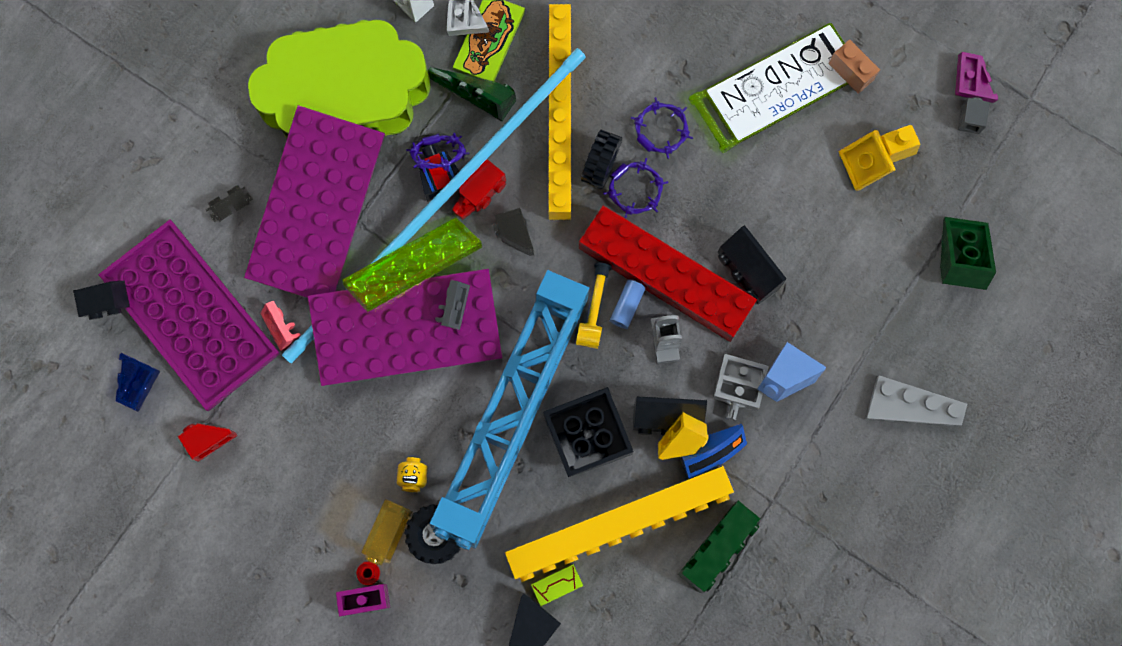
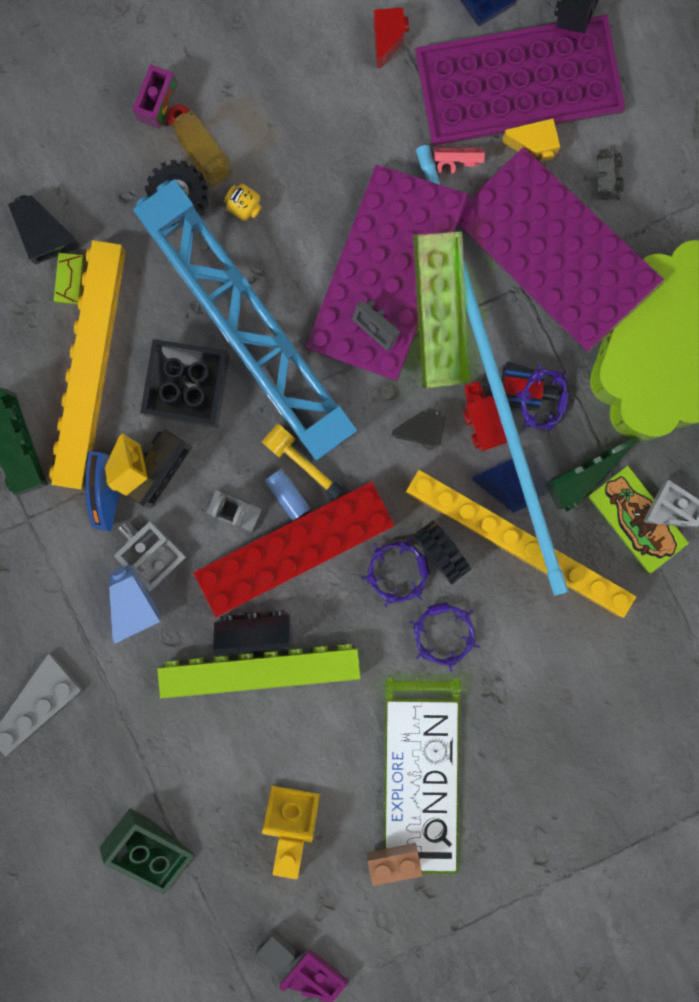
camera: 120 degrees right, 10 degrees up
(231, 272) = (537, 138): none -> yellow slope
(520, 146) = (503, 485): none -> clear blue wing
(802, 277) = (258, 672): none -> lime brick

